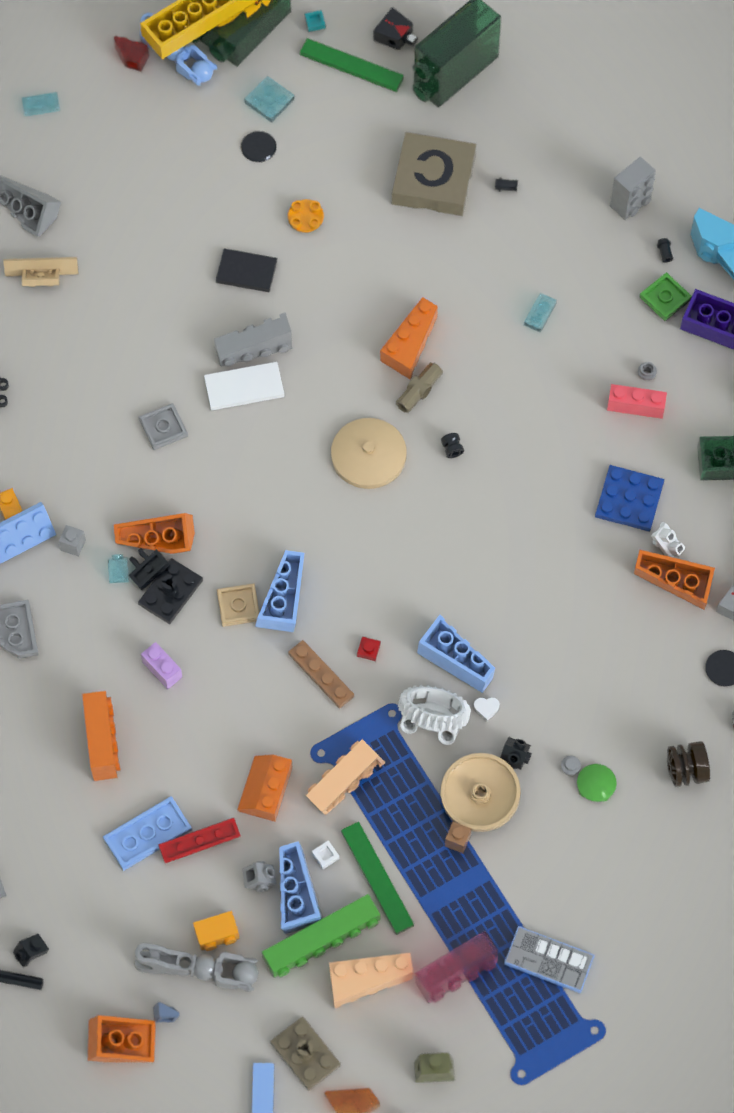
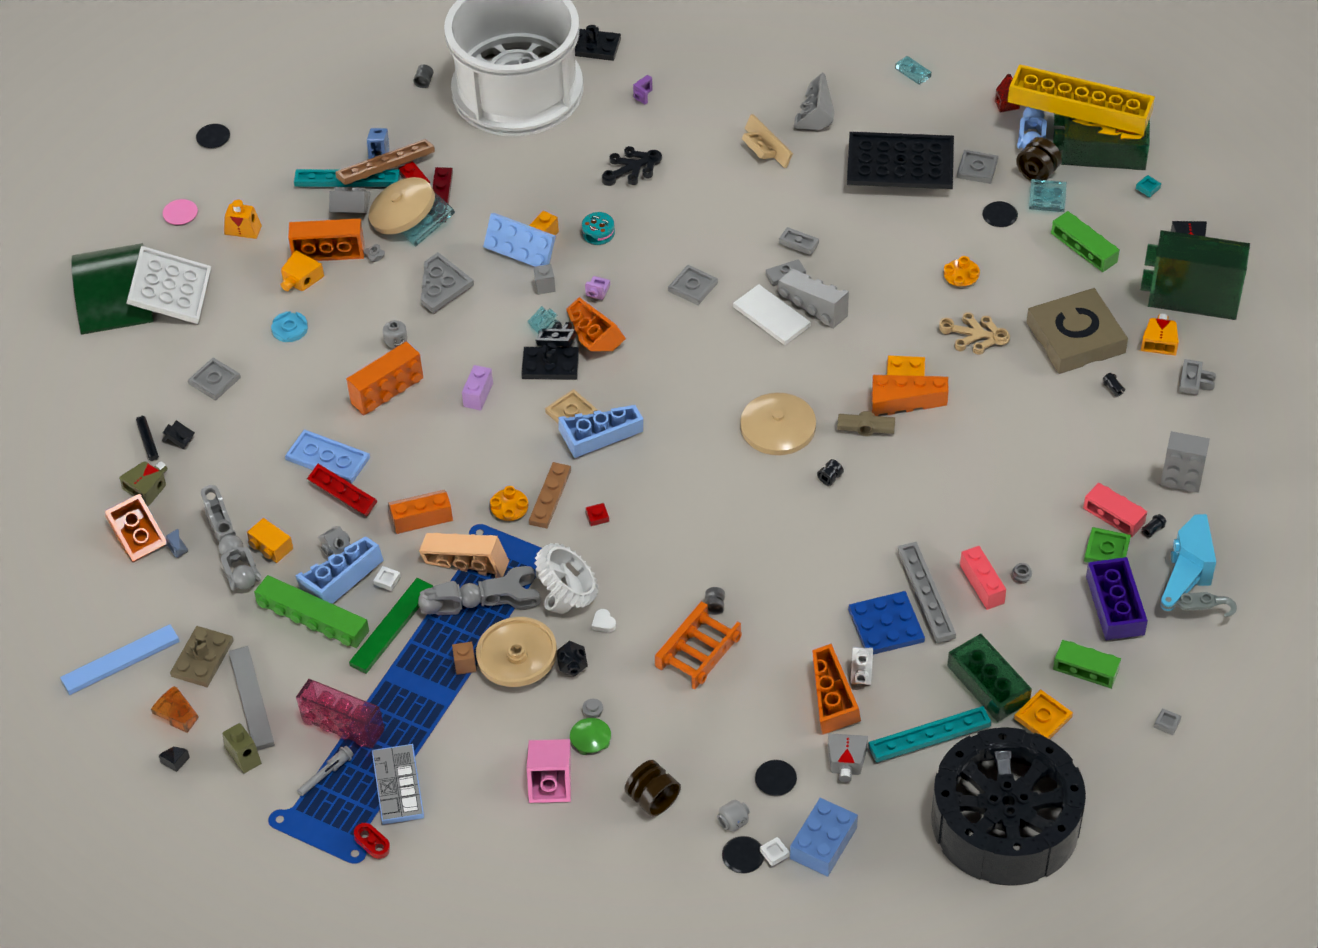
camera: 60 degrees right, 15 degrees down
(40, 463) = (598, 228): none -> teal head
(46, 699) = (394, 333): none -> light grey head
(69, 1005) = (144, 480): none -> olive torso
(113, 503) = (597, 287): none -> lavender bracket
(150, 181) = (900, 160): none -> black piece
(177, 314) = (798, 241): none -> light grey plate
(193, 128) = (977, 166): none -> light grey tile
(204, 346) = (776, 273): none -> light grey plate
(233, 79) = (1039, 159): none -> dark brown wheel
(246, 270) = (878, 263): black tile -> none
(310, 712) = (509, 504): none -> light orange dish
(342, 105) = (1085, 241): none -> bright green brick
(351, 65) = (1130, 228): green tile -> none
(367, 976) = (291, 656): light nougat wedge -> none
(378, 245) = (996, 336): none -> tan plant
(378, 1033) = (251, 698): none -> light grey tile
(380, 323) = (906, 365): none -> light orange plate
(395, 795) = (449, 598): none -> light grey piece
(455, 655) = (633, 567): light blue wedge -> none
(482, 118) = (1160, 336): none -> light orange torso
(497, 1000) = (340, 758): none -> light grey pin
(525, 610) = (714, 599): none -> flat silver wheel
(538, 126) = (1195, 377): none -> light grey hinge
(540, 312) = (1011, 468): clear light blue plate -> none
(551, 663) = (688, 630): none -> orange fence
(595, 1009) = (373, 841): none -> red plate
(615, 832) = (549, 771): none -> bright pink slope
(621, 450) = (926, 592): none -> light grey plate
(633, 266) = (1115, 509): none -> coral brick

